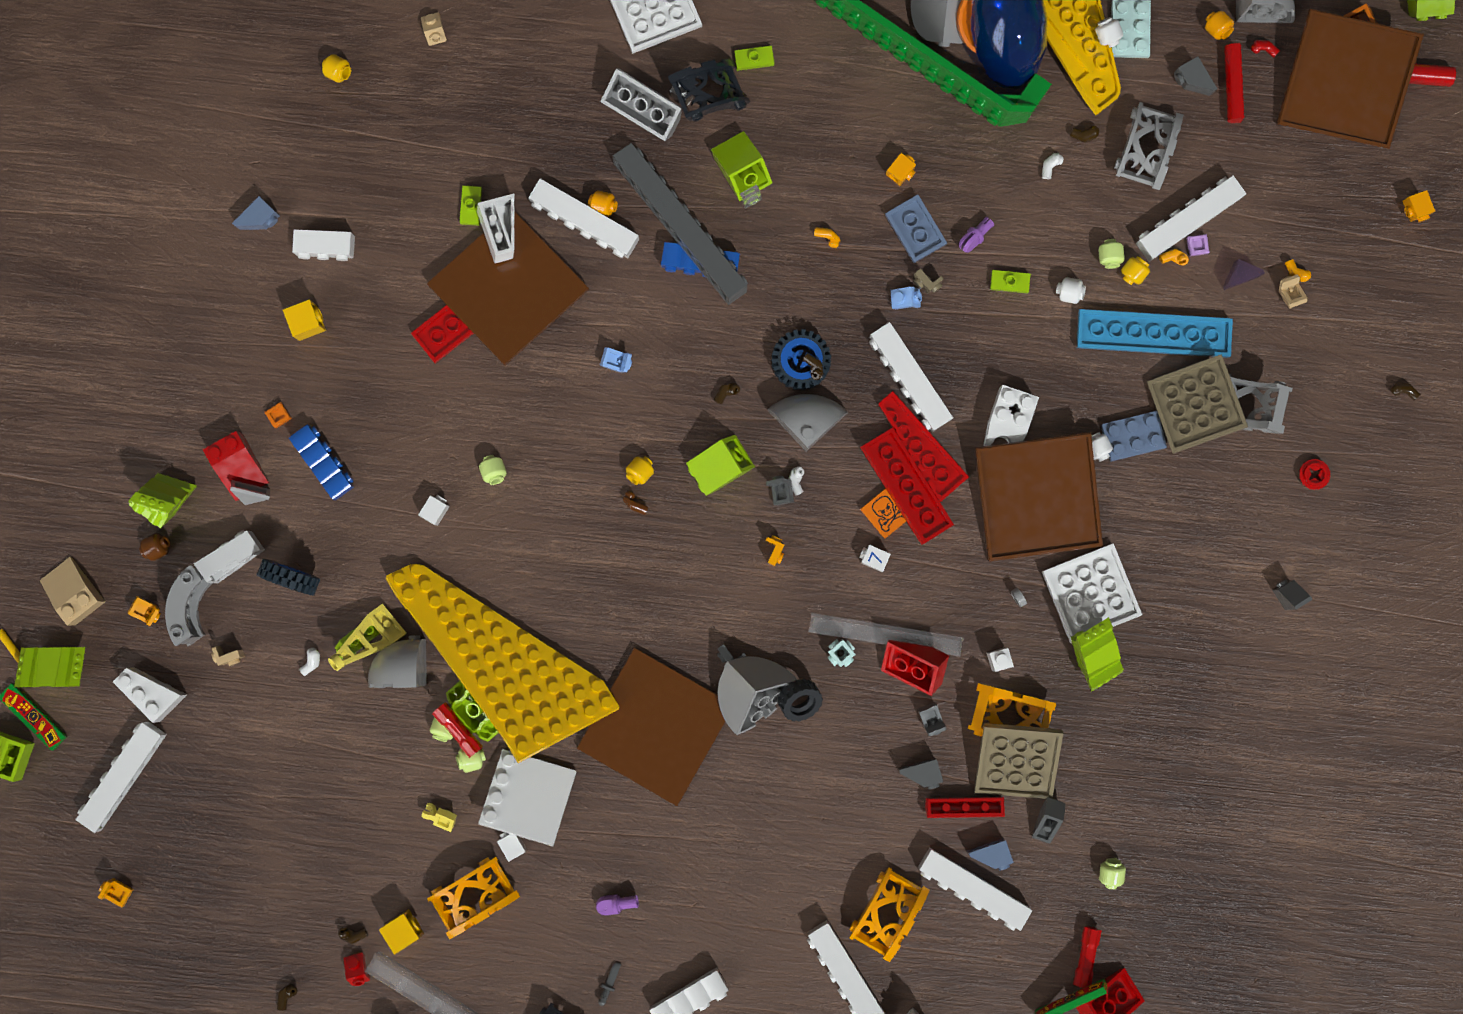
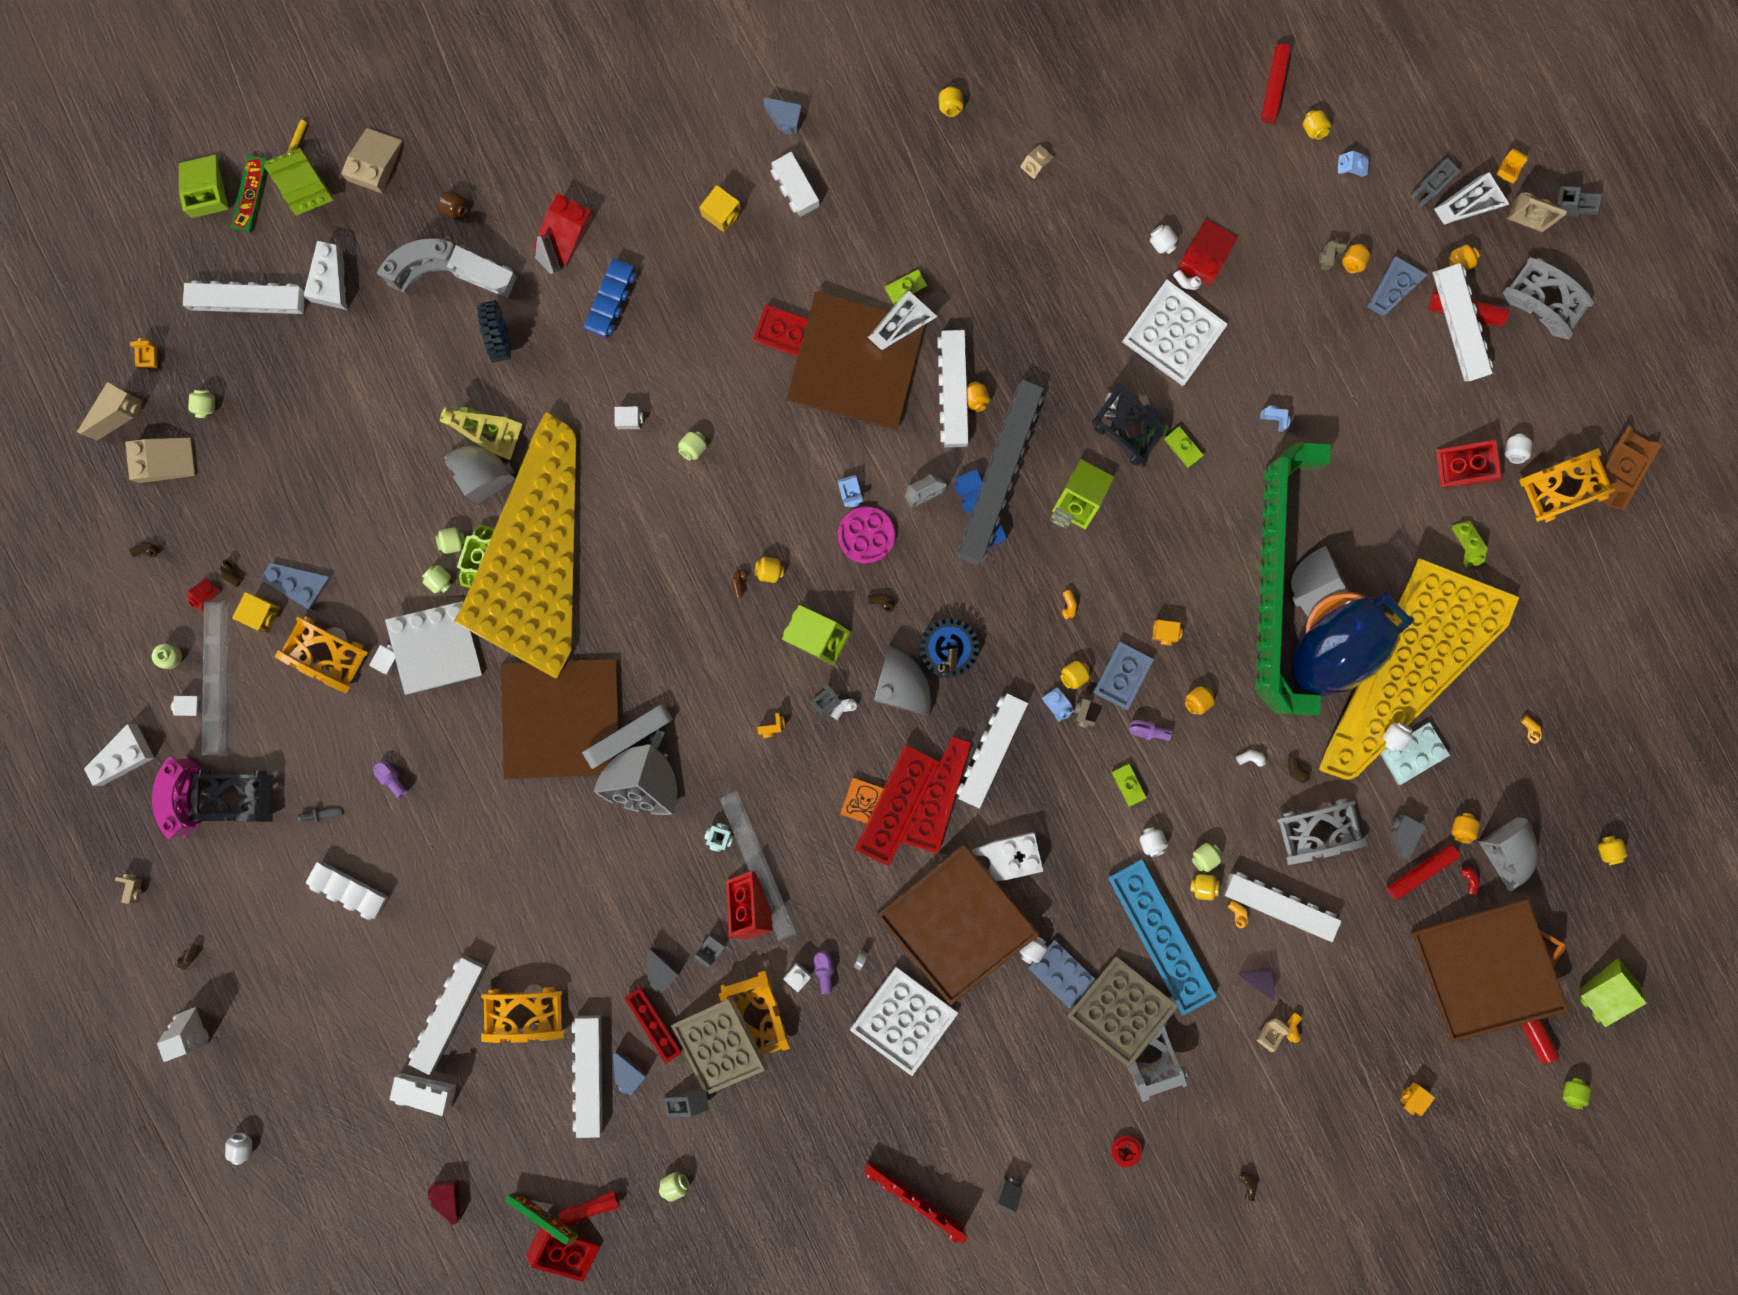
camera: 45 degrees right, 0 degrees up
(144, 611) = (394, 230): light orange bracket -> none
(147, 952) = (109, 412): none -> tan slope
(161, 498) = (495, 184): lime slope -> none
(189, 869) = (201, 403): none -> yellowish green head
(215, 934) = (160, 459): none -> tan slope
(230, 658) = (393, 319): tan bracket -> none
(278, 415) = (627, 237): orange tile -> none
(313, 659) = (438, 396): white arm -> none
(397, 883) = (296, 584): none -> sand blue wing
(441, 818) = (372, 586): light yellow plate -> none
(466, 740) = (457, 539): red axle -> none
(642, 105) = (1080, 377): light grey slope -> none
(654, 297) = (924, 490): none -> light grey slope
(661, 370) = (866, 534): none -> dark pink tile
(706, 677) = (627, 736): none -> light grey beam
(805, 709) = (649, 834): black tyre -> none
(874, 558) = (818, 815): white brick -> none
(890, 268) = (1075, 675): none -> yellow head
(976, 177) = (1199, 700): none -> light orange head
(1007, 633) = (824, 969): none -> medium lavender arm
(1097, 654) = (853, 1058): lime slope -> none
(1197, 245) = (1262, 927): lavender tile -> none
(1294, 657) = (955, 1230): none -> red wing

